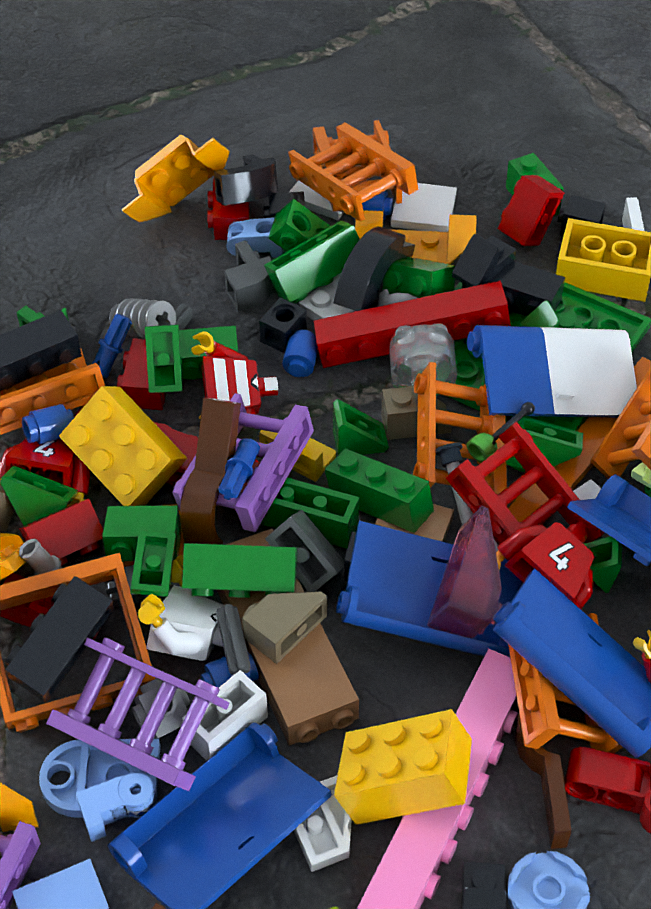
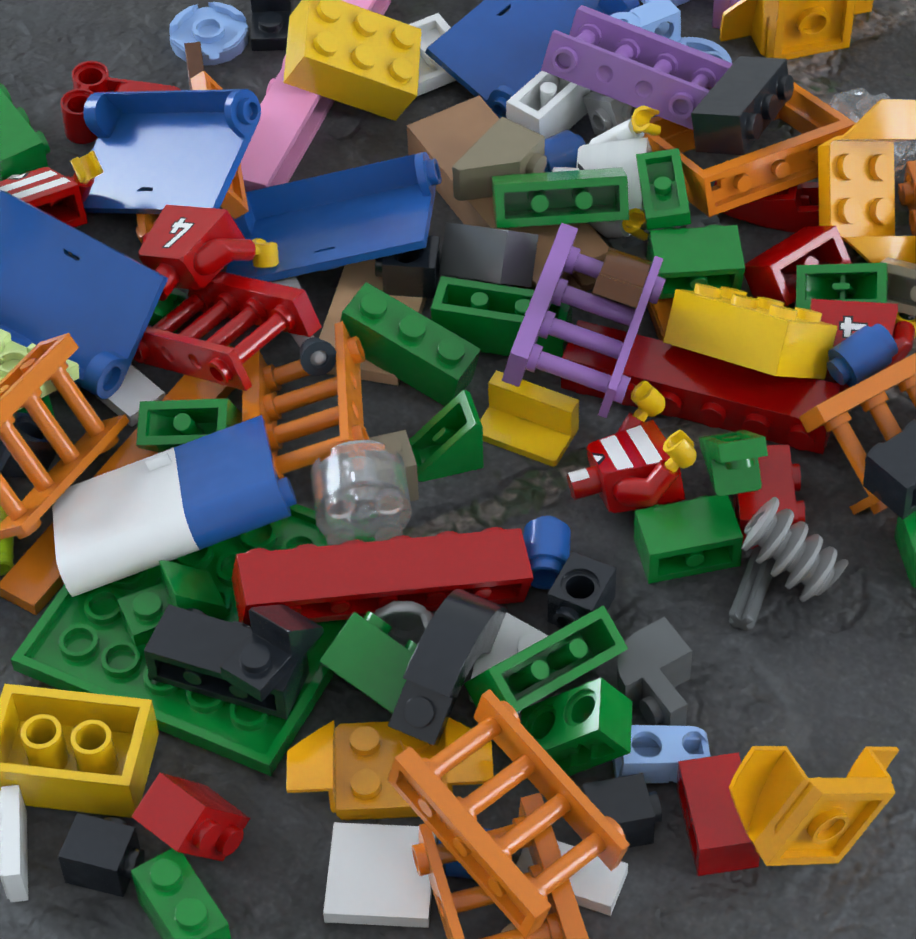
camera: 175 degrees right, 0 degrees up
(38, 557) = (797, 212): light grey axle -> none
(112, 343) = (828, 510): blue axle -> none
(233, 639) = (555, 150): dark grey axle -> none
(239, 468) = (582, 269): blue axle -> none
(246, 183) = (672, 813): black arch -> none
(470, 581) = (294, 193): clear pink slope -> none
(484, 444) = (270, 378): bright green hinge -> none

